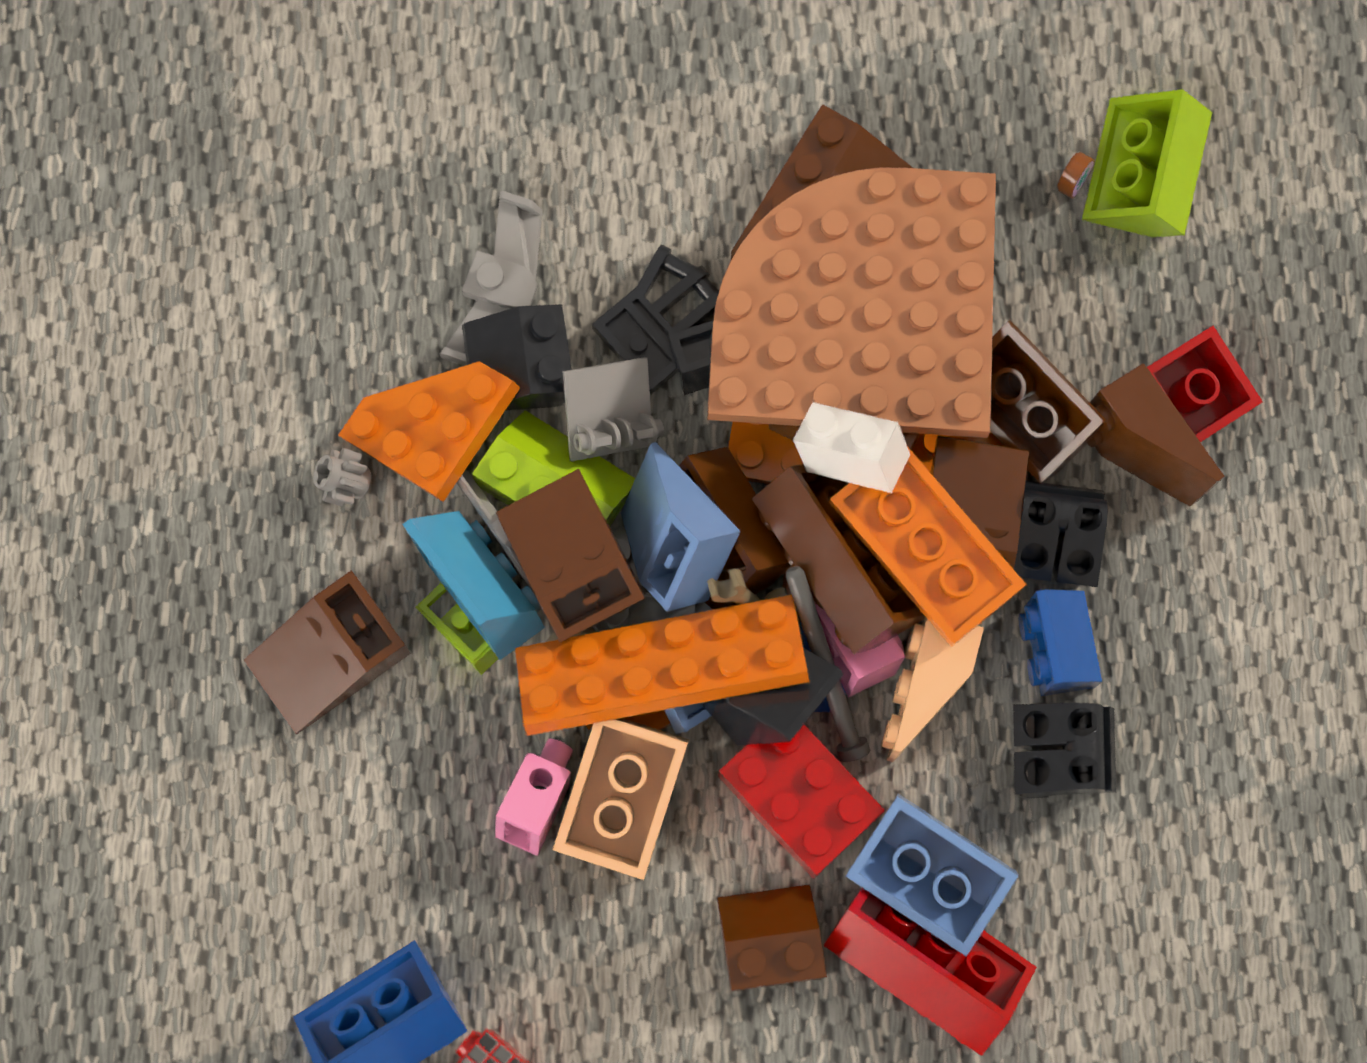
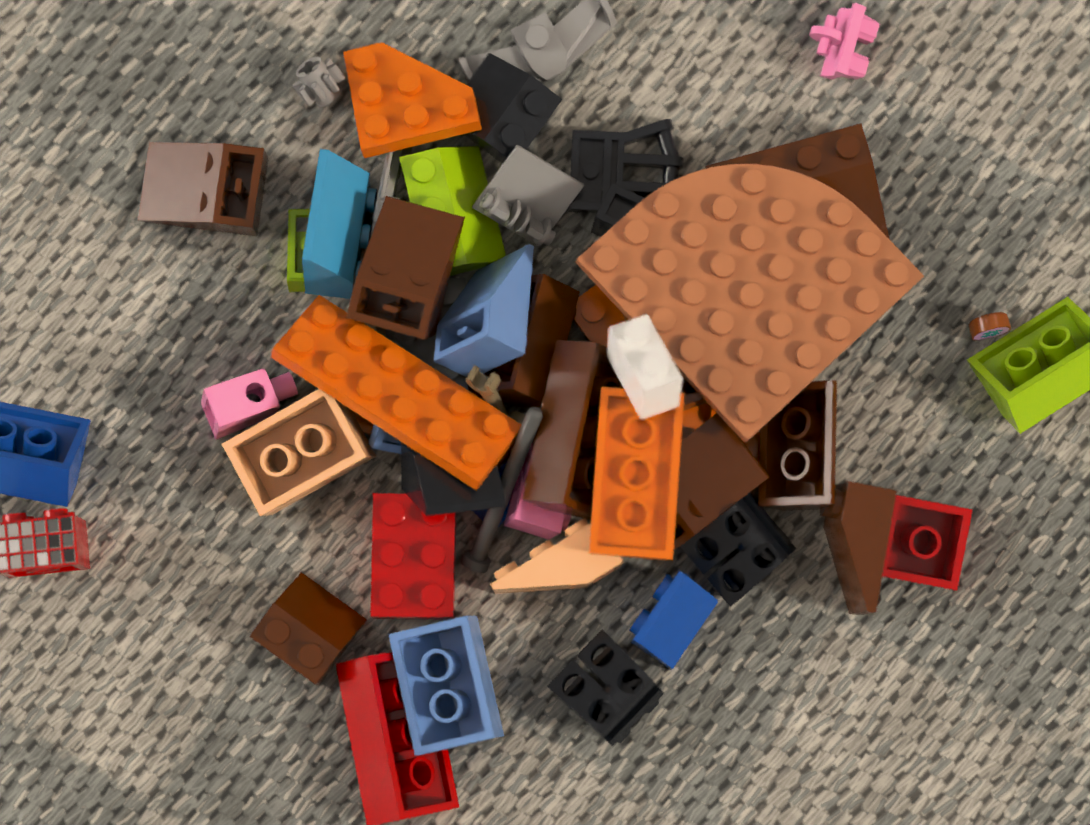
camera: 45 degrees right, 5 degrees up
(738, 59) = (838, 41): none -> bright pink hips

